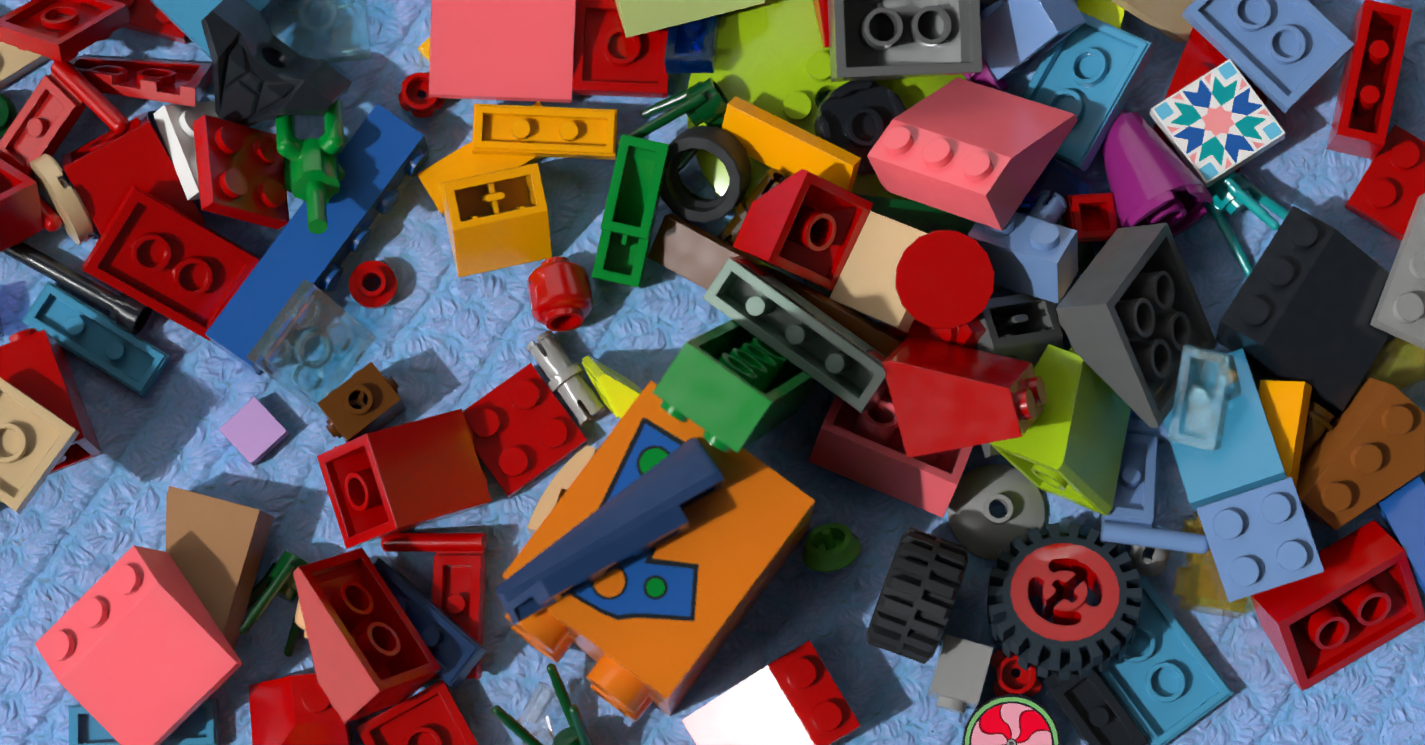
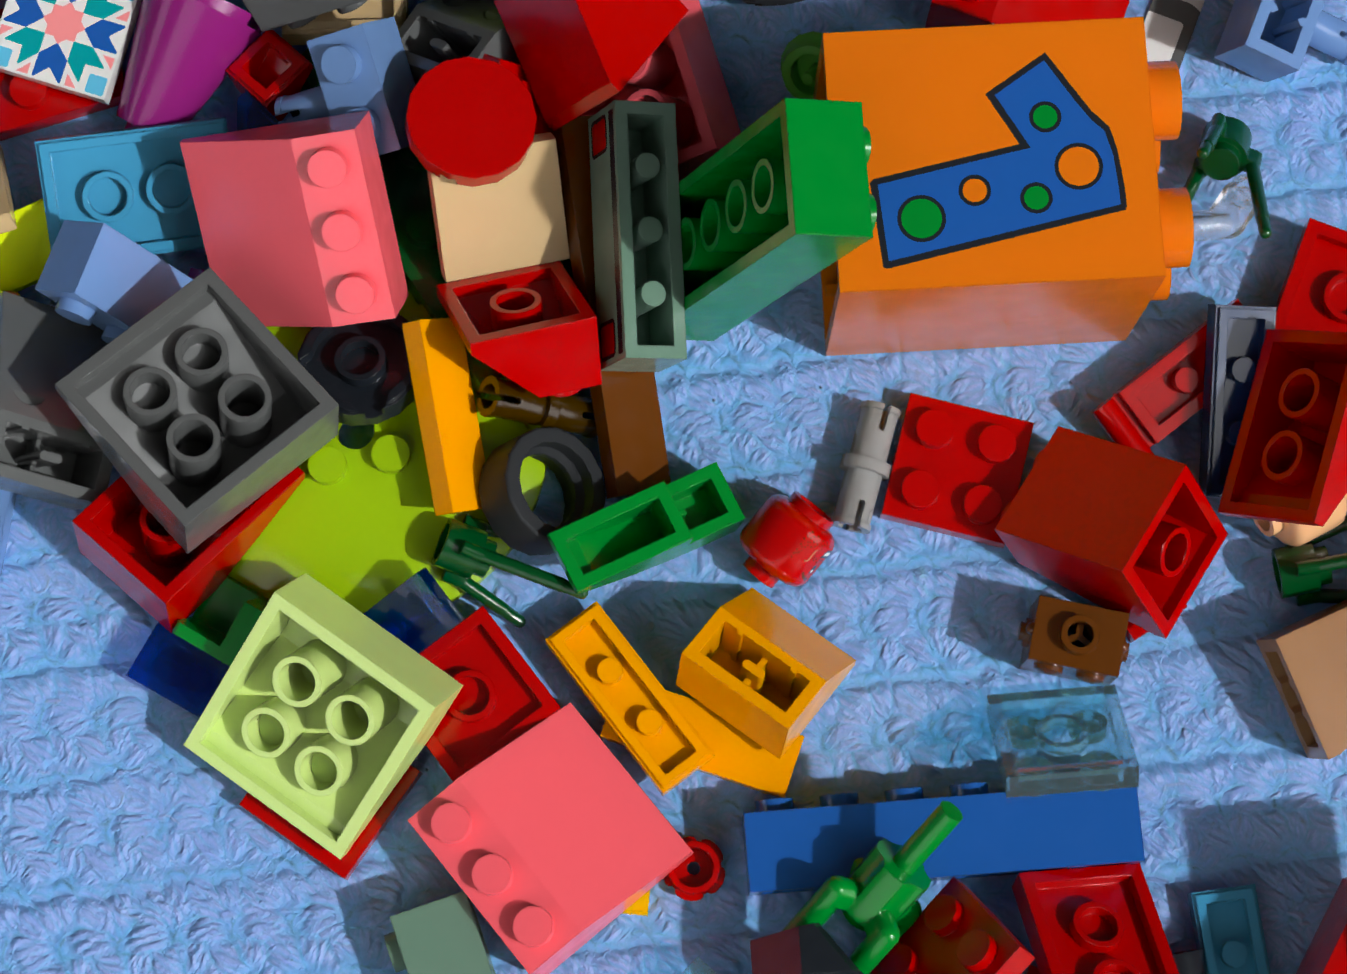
camera: 130 degrees left, 0 degrees up
(253, 431) = (1189, 737): lavender tile -> none
(376, 298) = (922, 758): red plate -> none
(559, 486) = (967, 372): tan slope -> none
(612, 388) = (841, 390): neon yellow slope -> none
(616, 533) = (1029, 190): dark blue wedge -> none

